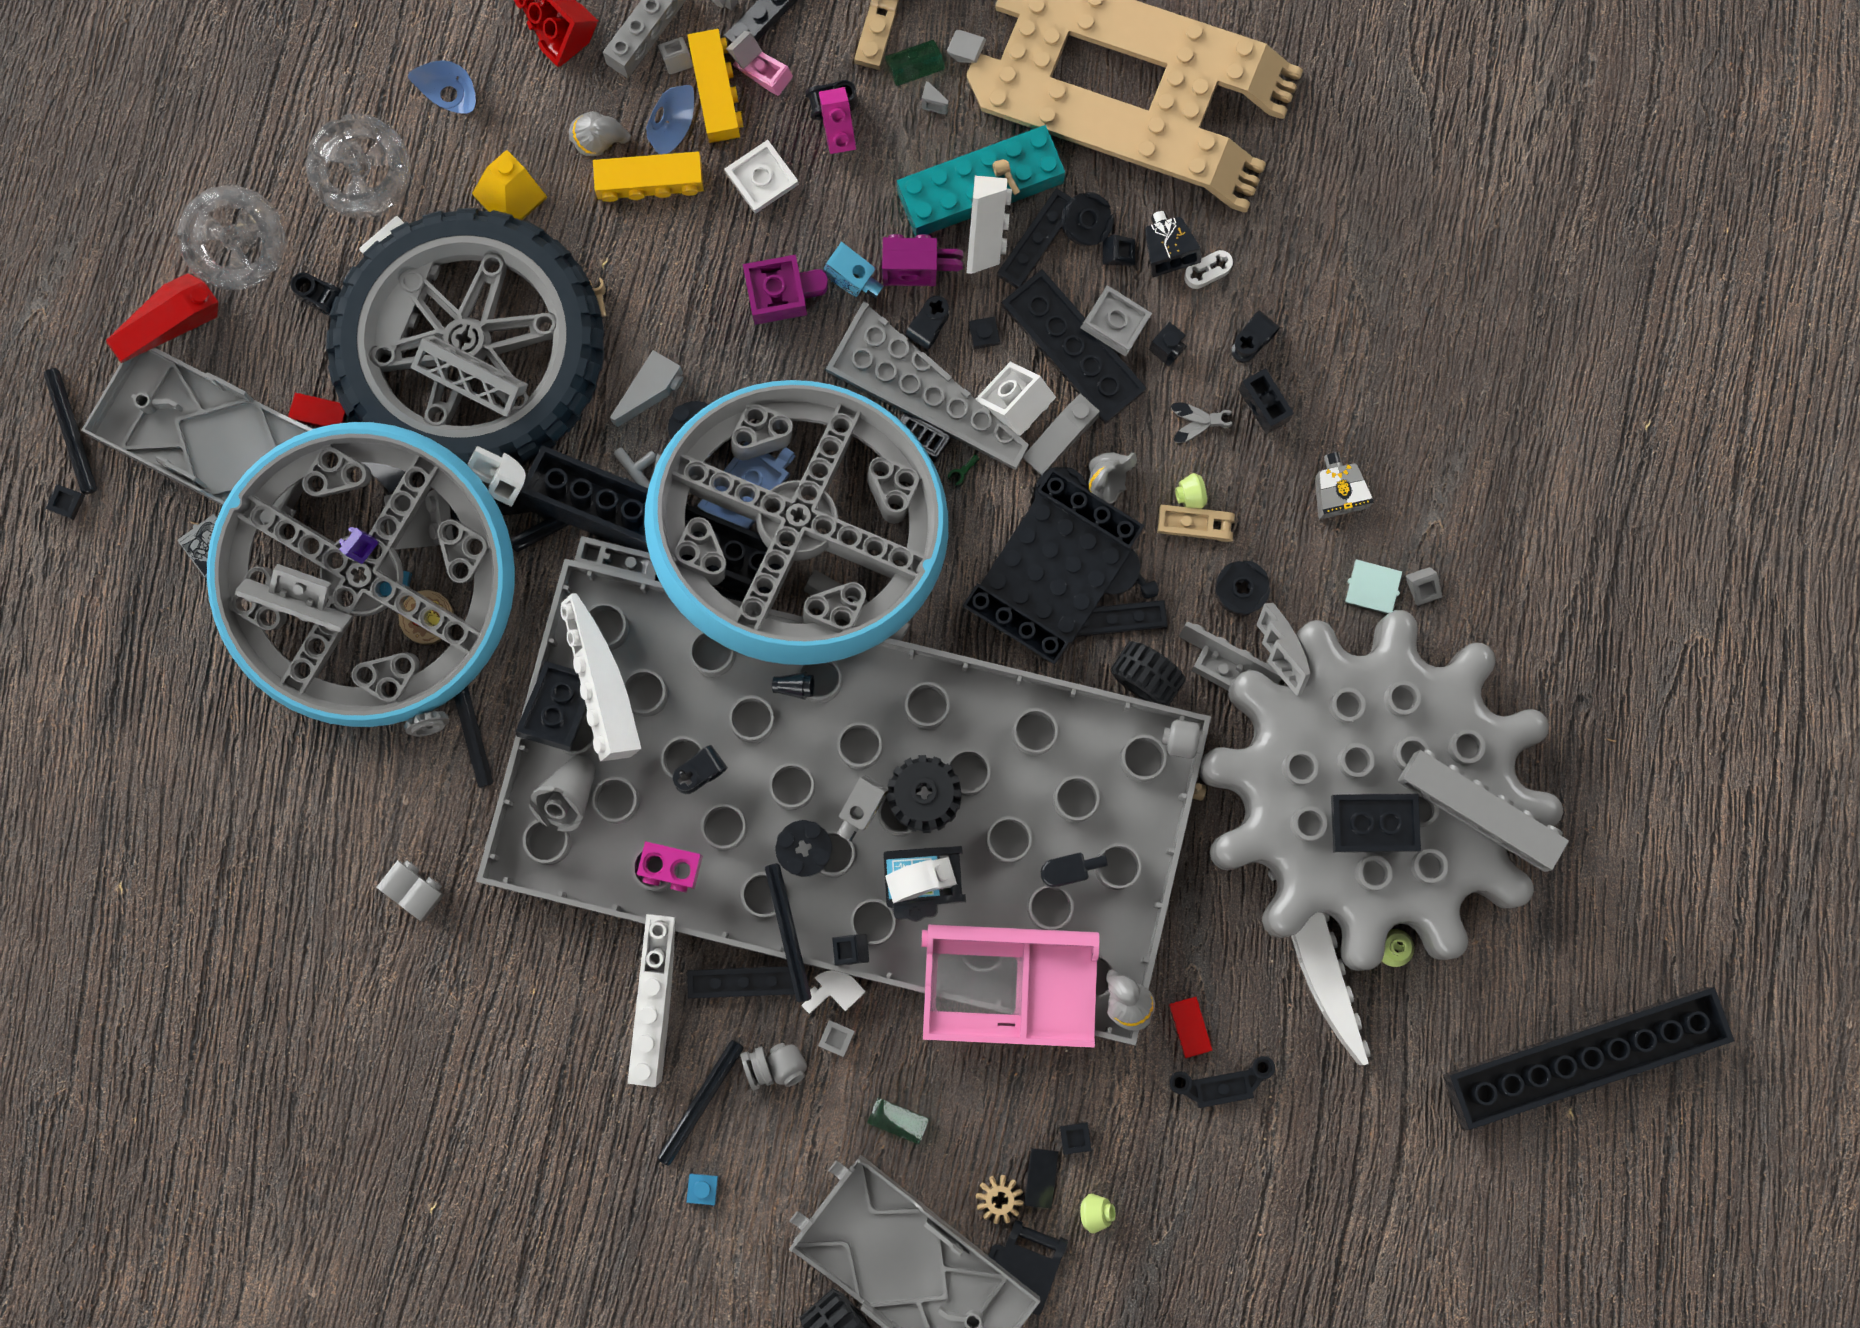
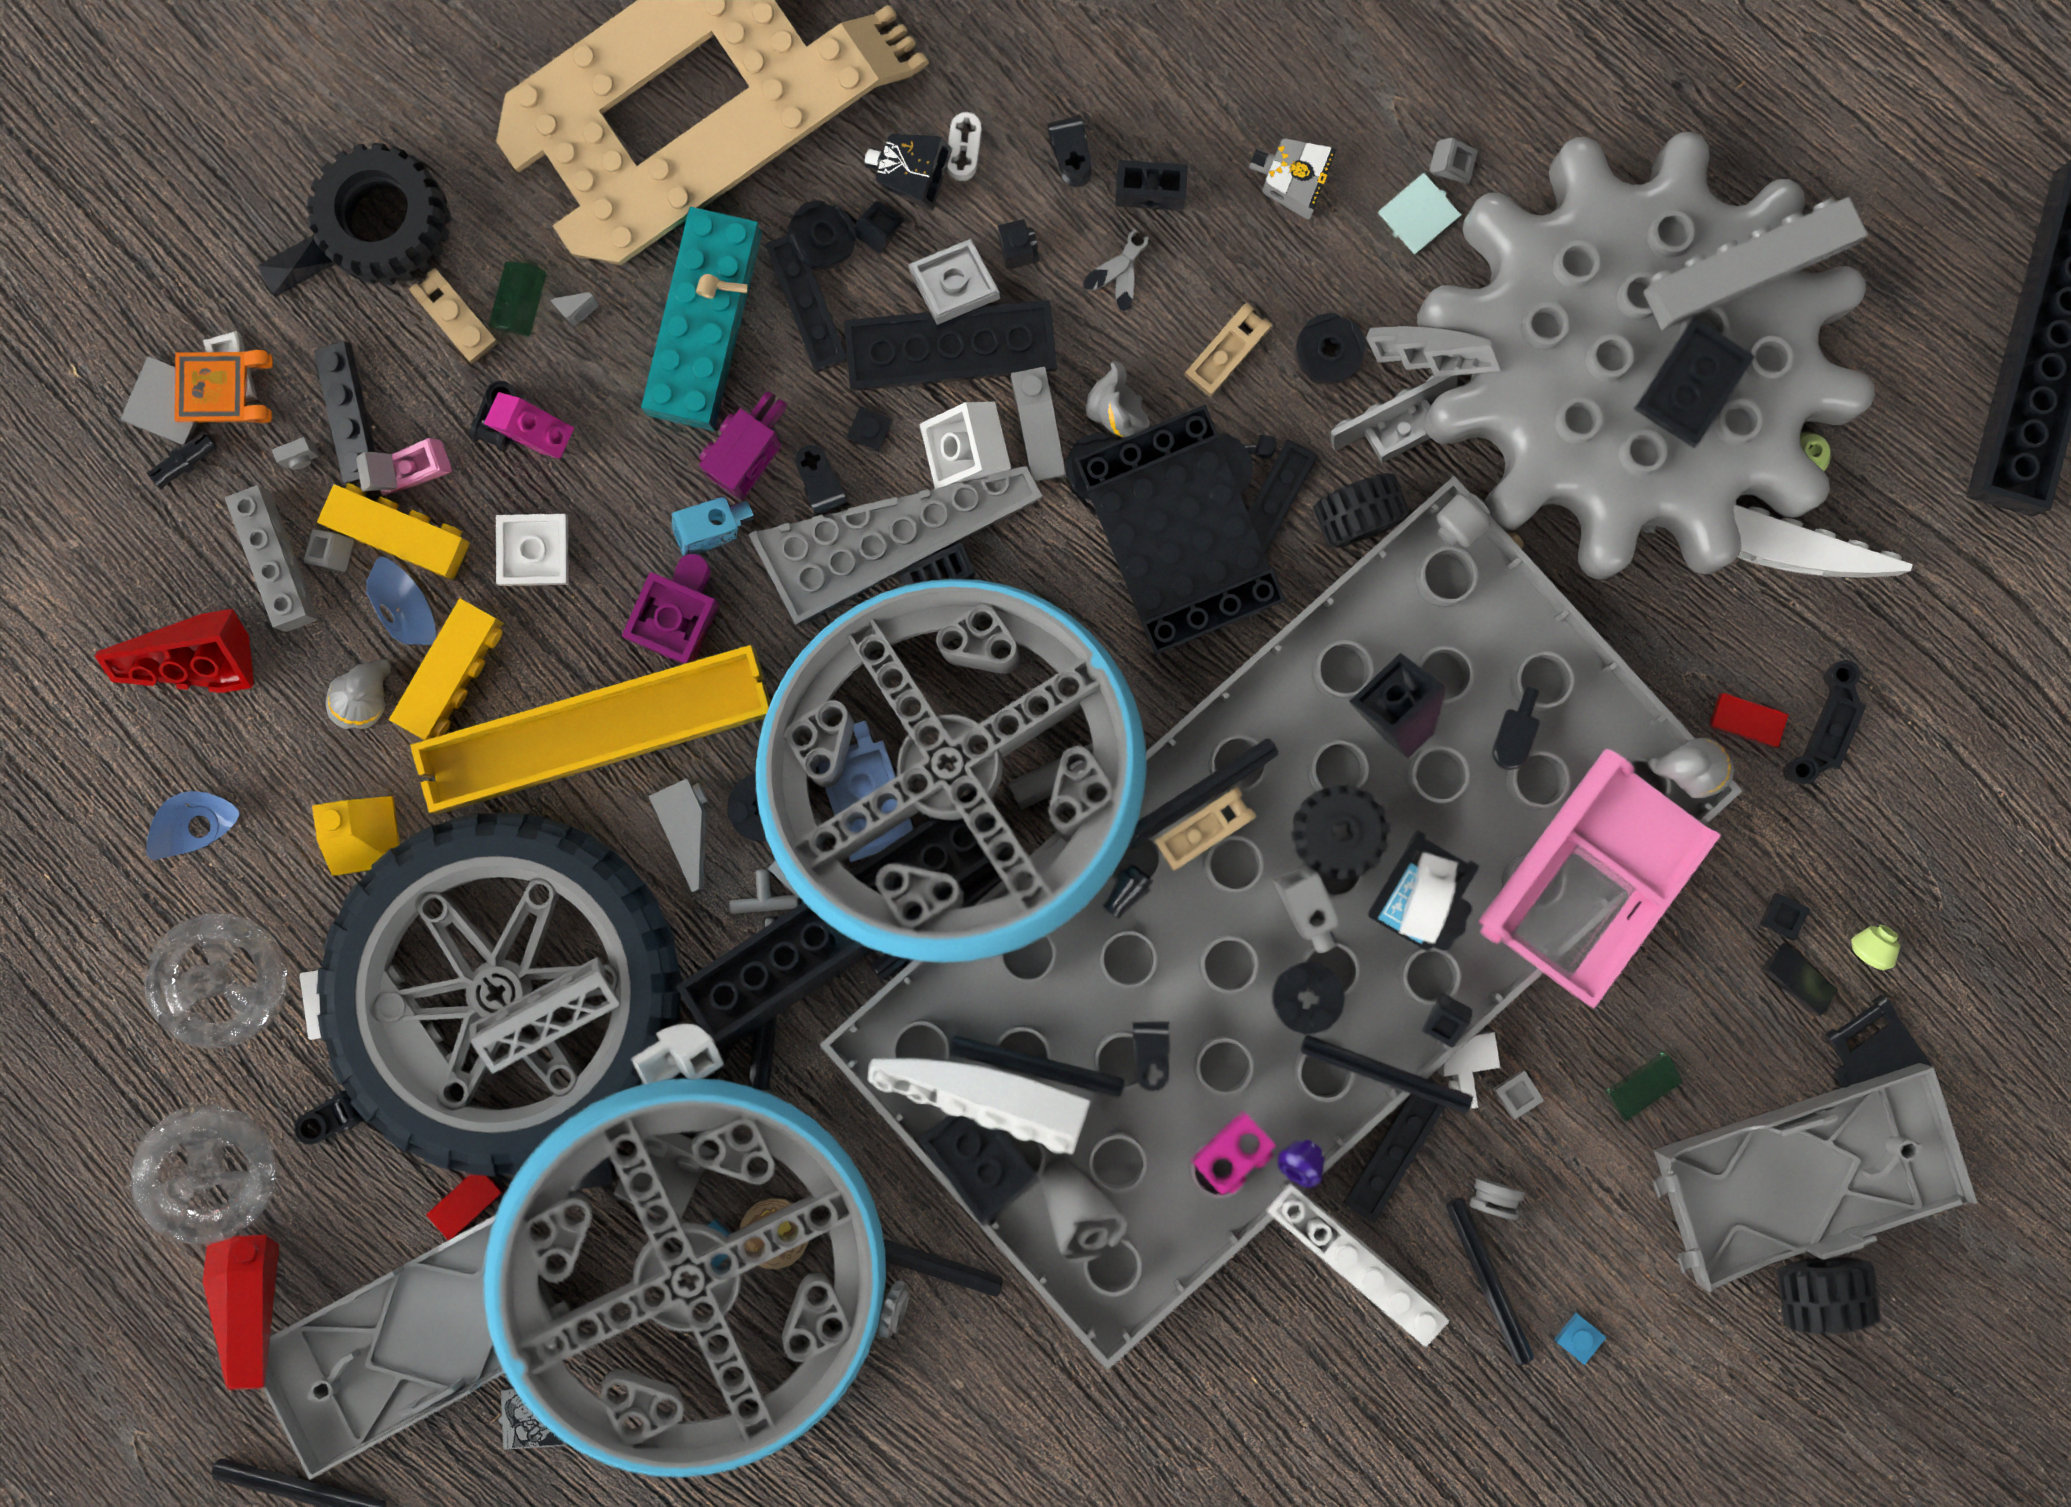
camera: 55 degrees left, 5 degrees up
(296, 595) = (668, 1367): light grey bracket -> none
(358, 545) = (659, 1262): dark purple tile -> none
(411, 890) = (1061, 1442): light grey brick -> none
(599, 292) = (542, 812): tan hand -> none
(615, 558) = (854, 989): light grey slope -> none
(642, 704) = (1036, 1066): none -> black axle
(671, 288) = (592, 730): none -> yellow piece
(693, 914) = (1302, 1163): none -> dark purple cone
(786, 1064) = (1512, 1165): light grey head -> none
(867, 707) = (1203, 829): none -> tan plate
(890, 690) = (1203, 791): none -> black axle
(964, 470) = (1004, 551): dark green hand -> none
(965, 47) = (539, 232): light grey slope -> none
(988, 223) = (757, 342): white slope -> none
(1005, 1206) = (1784, 1039): tan gear -> none
(1035, 780) = (1402, 704): none -> black slope
(1192, 492) = (1194, 330): yellowish green cone -> none

